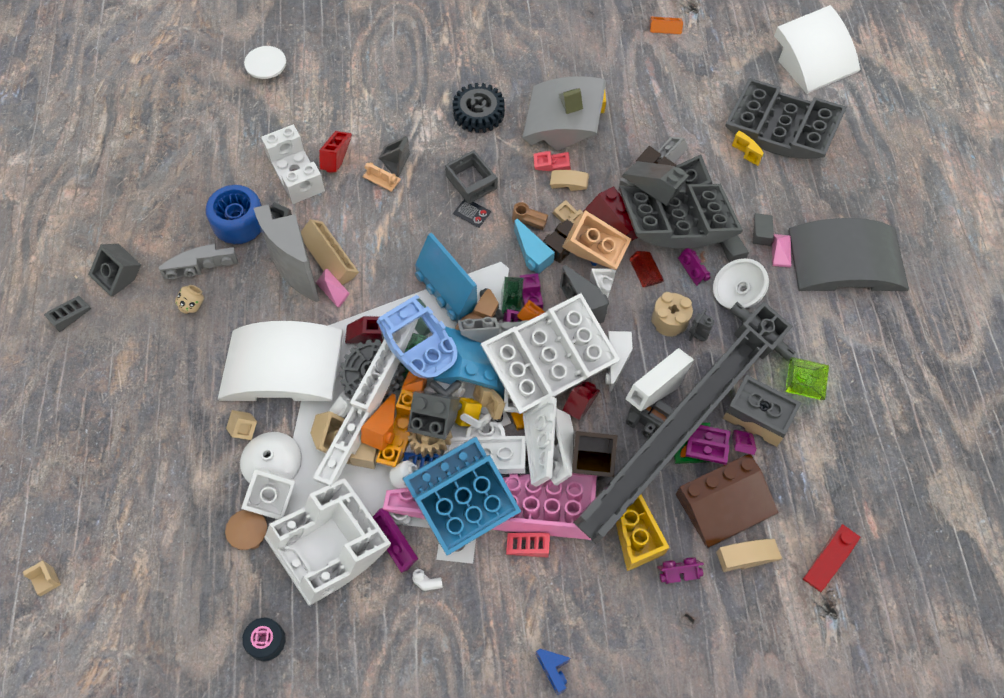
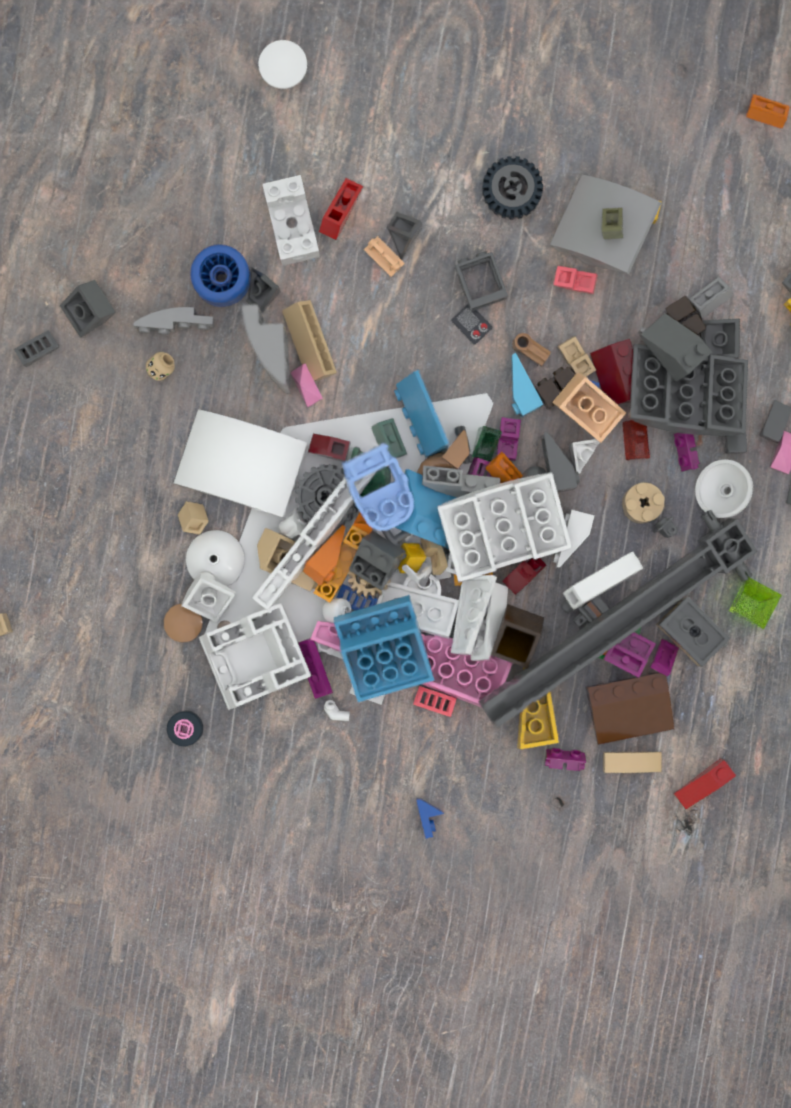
camera: 15 degrees right, 25 degrees up
(569, 178) = (587, 310): tan slope -> none

